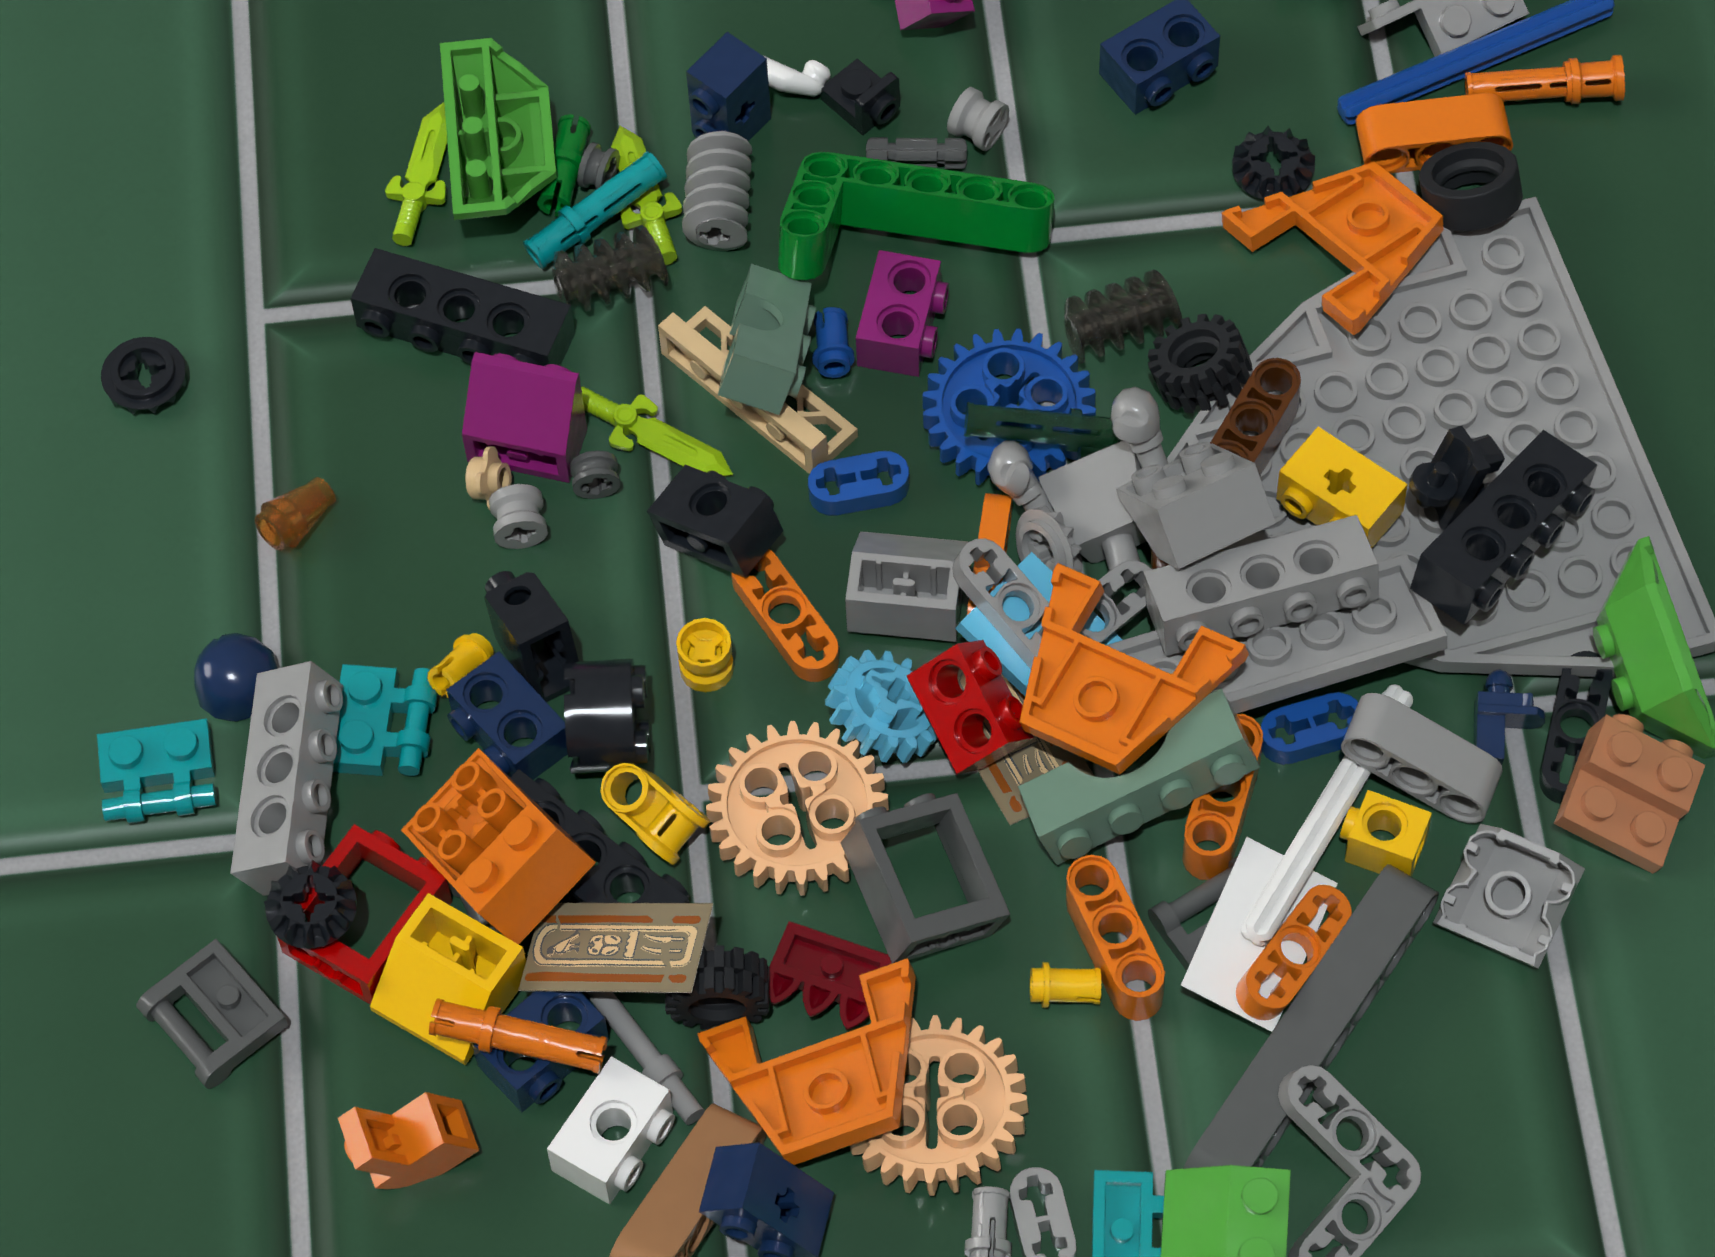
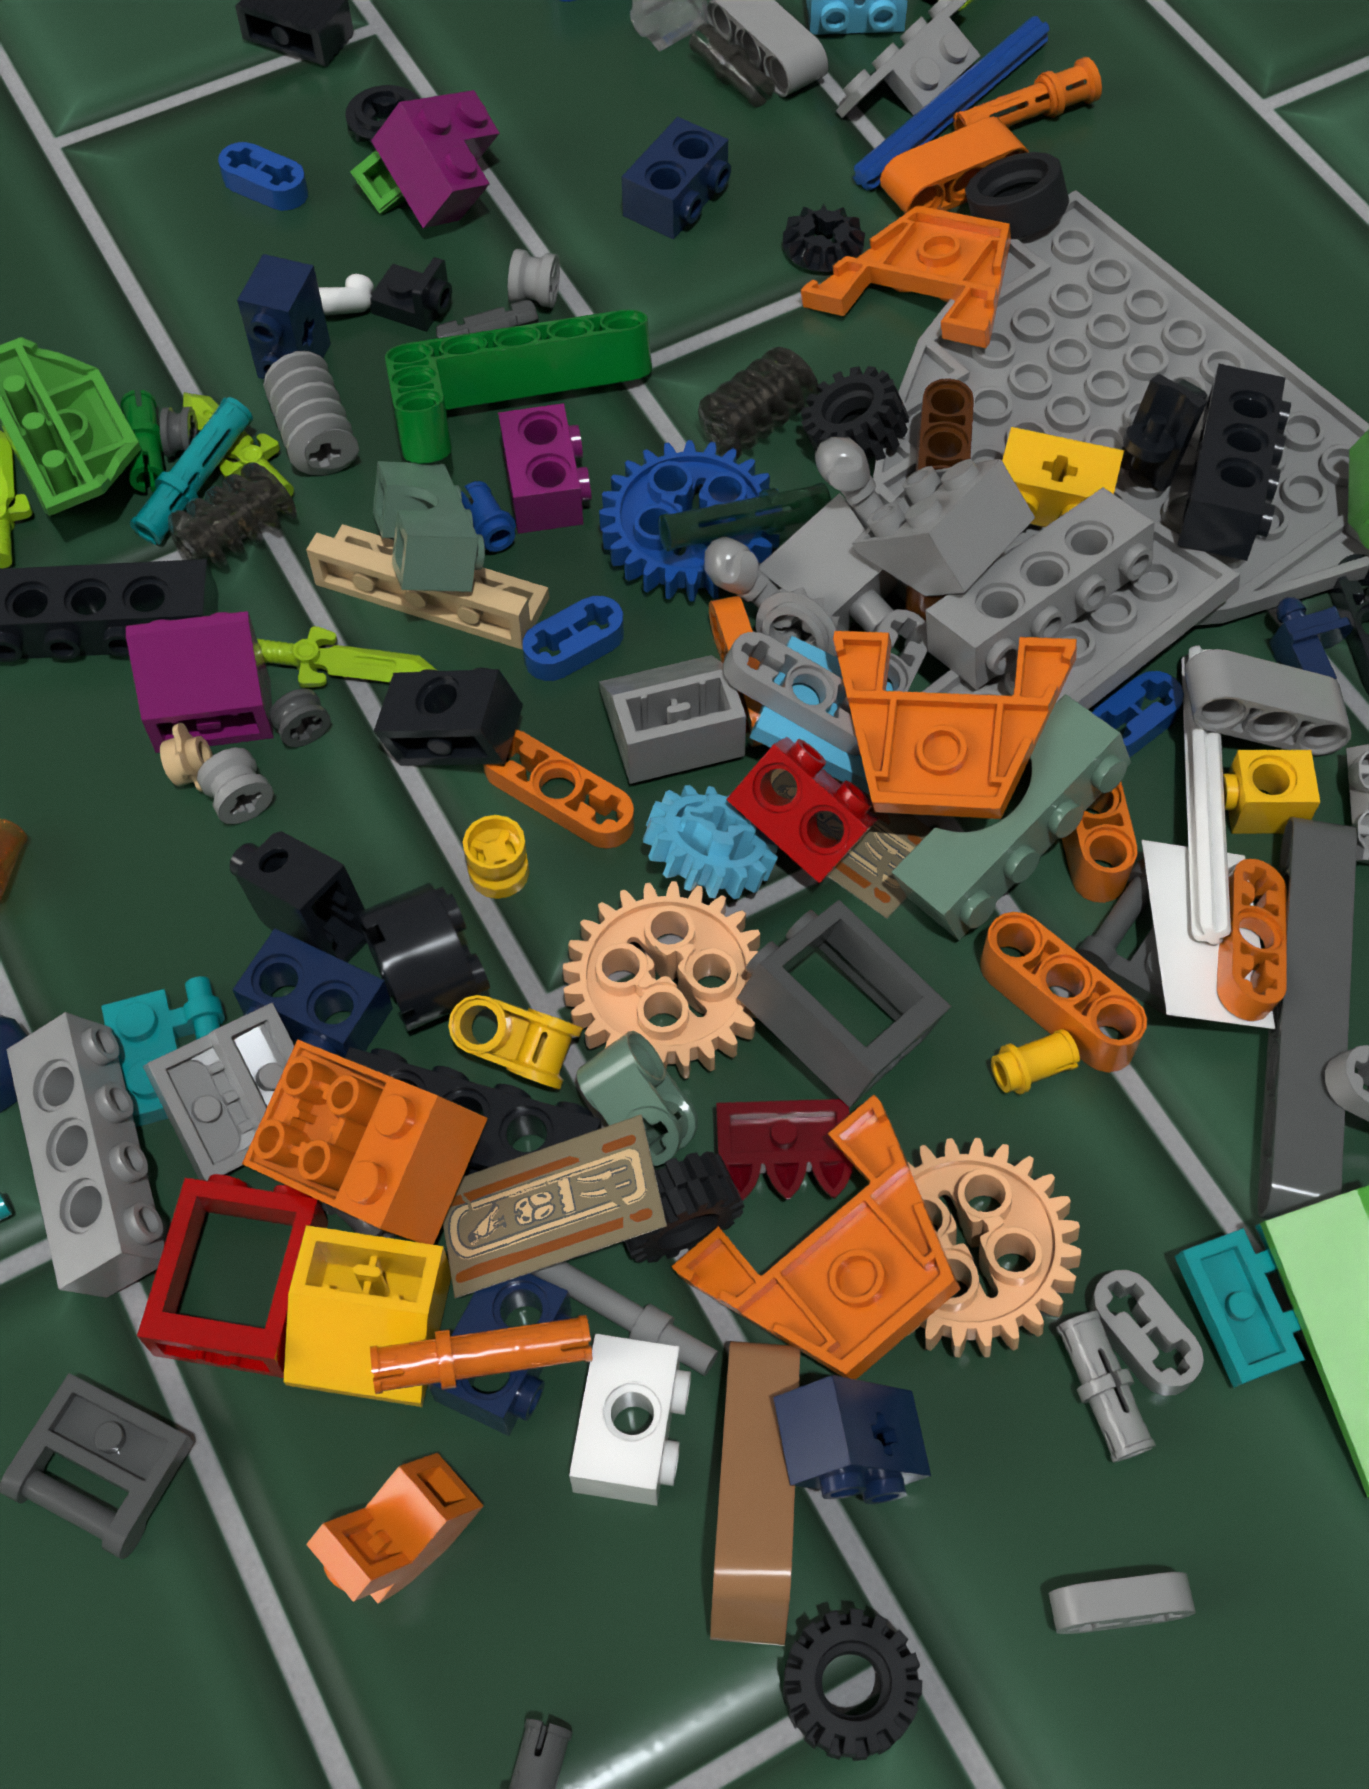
camera: 25 degrees left, 0 degrees up
(329, 919) = (199, 1302): black gear -> none
(408, 763) = (222, 1087): none -> light grey slope
(467, 654) = (237, 949): yellow pin -> none
(729, 880) = (632, 1081): none -> sand green piece

